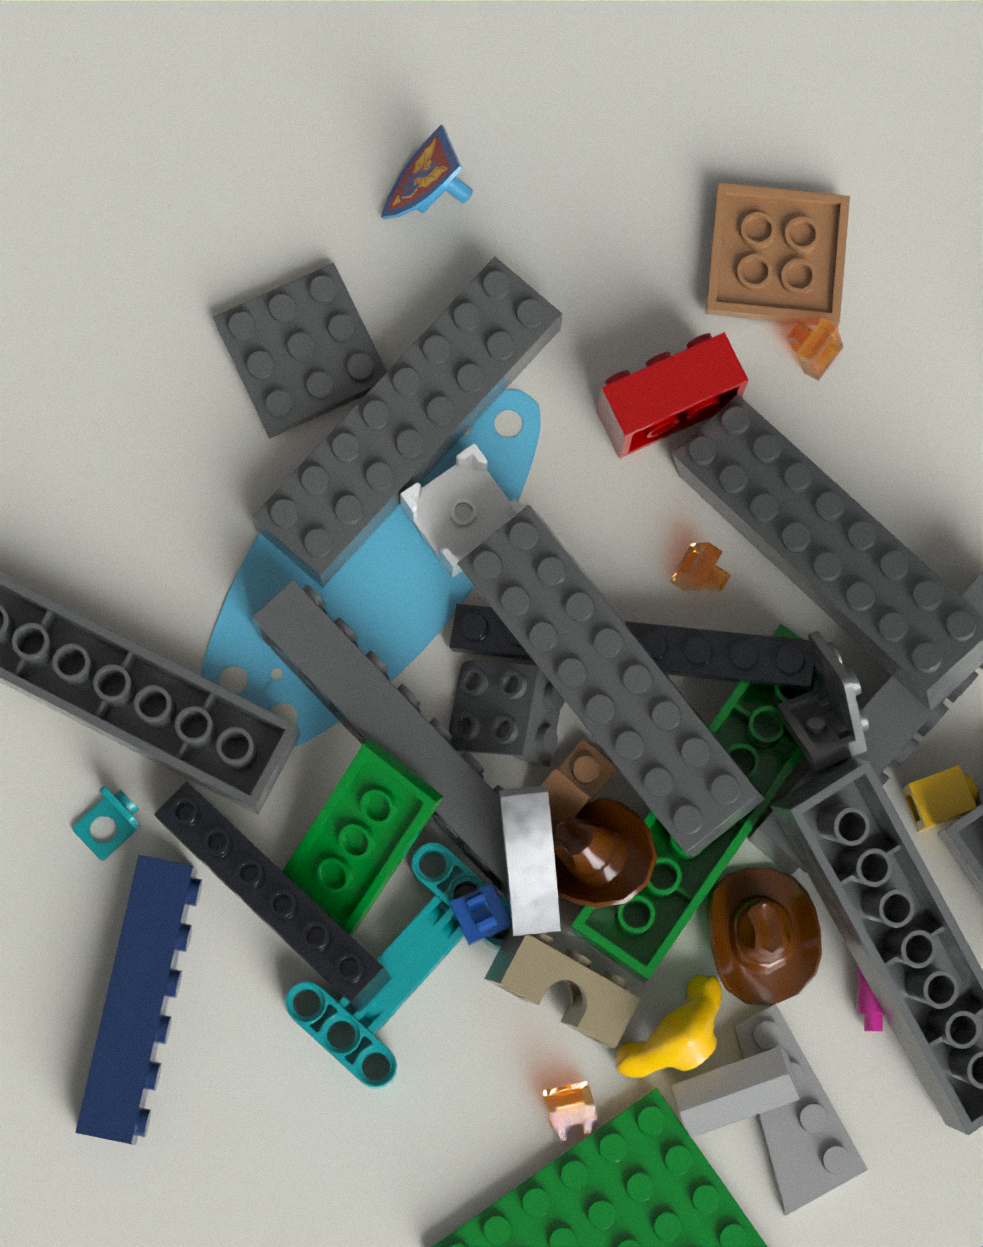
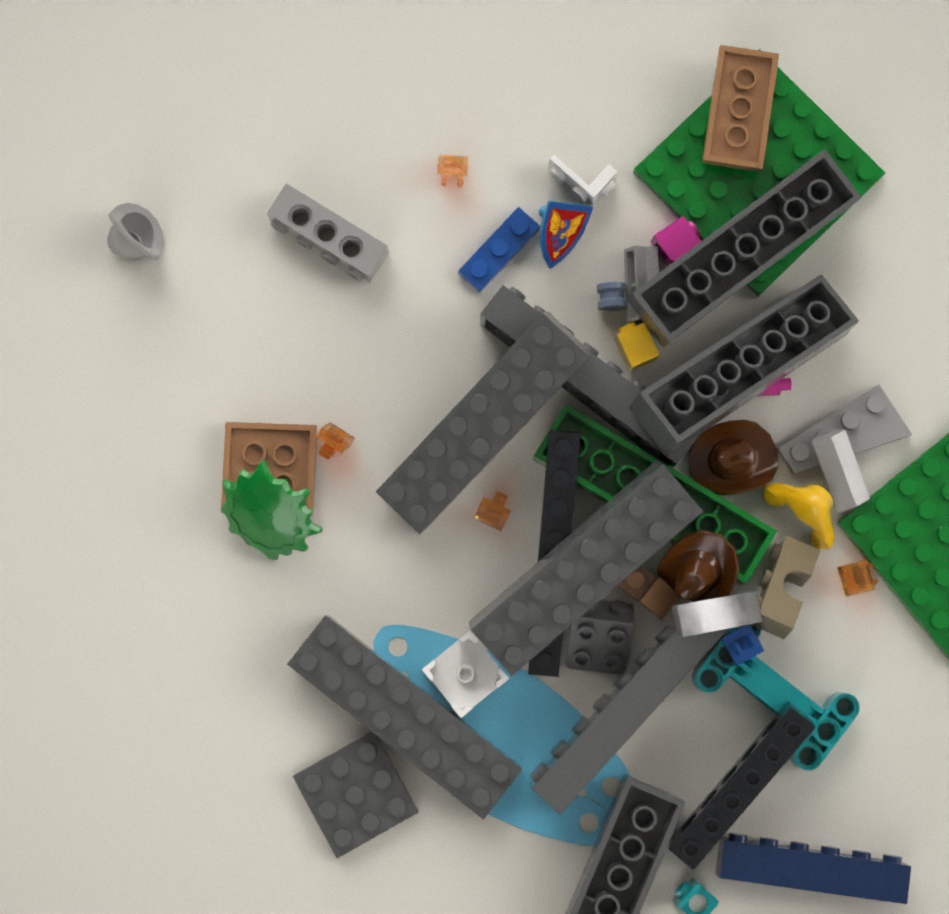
camera: 90 degrees left, 5 degrees up
(362, 835) = (699, 728): green plate -> none
(427, 177) = (228, 715): shield -> none
(670, 393) = (375, 537): red brick -> none
(714, 241) = (268, 512): none -> green piece
(828, 719) = (600, 422): dark grey bracket -> none

